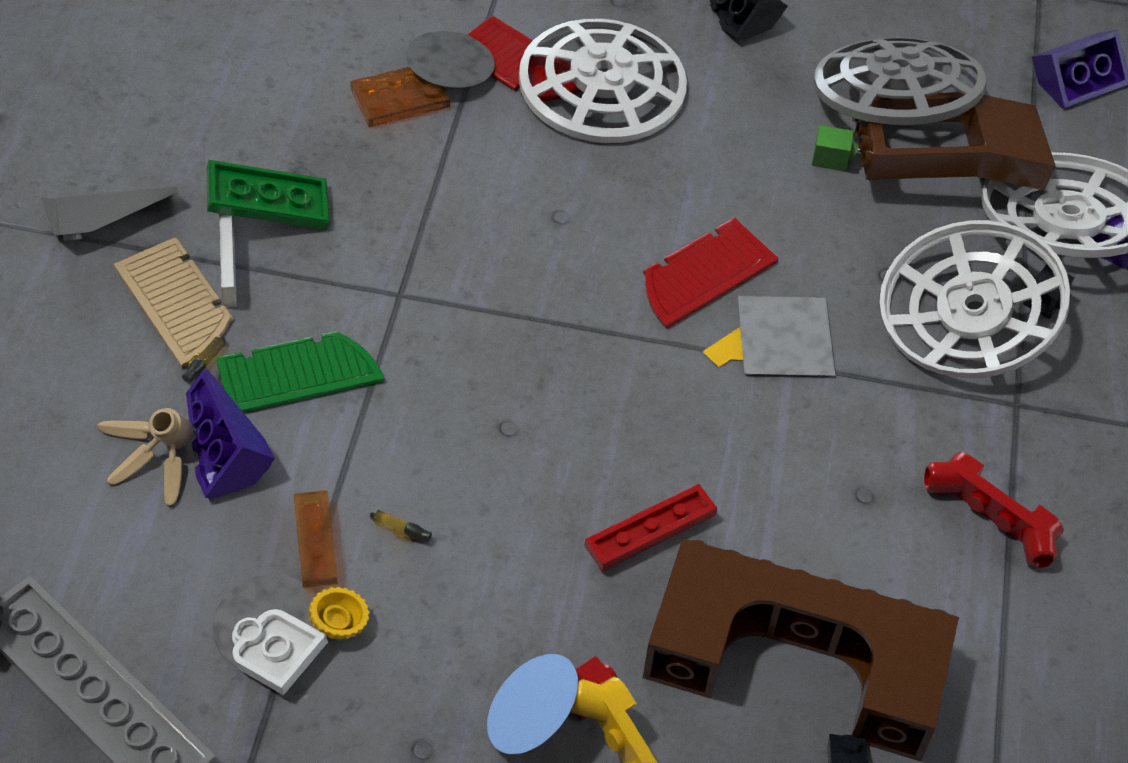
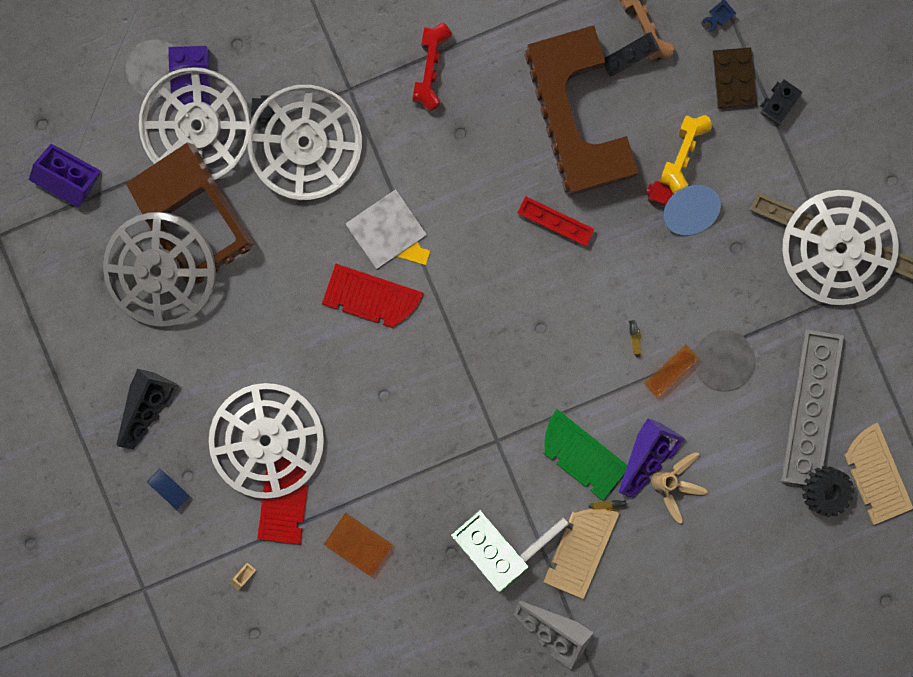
camera: 120 degrees left, 35 degrees up
(275, 648) = (738, 345): white plate -> none
(338, 613) = (702, 329): yellow hat -> none
(449, 59) = (315, 533): flat silver sticker -> none
(833, 148) = (234, 278): bright green brick -> none

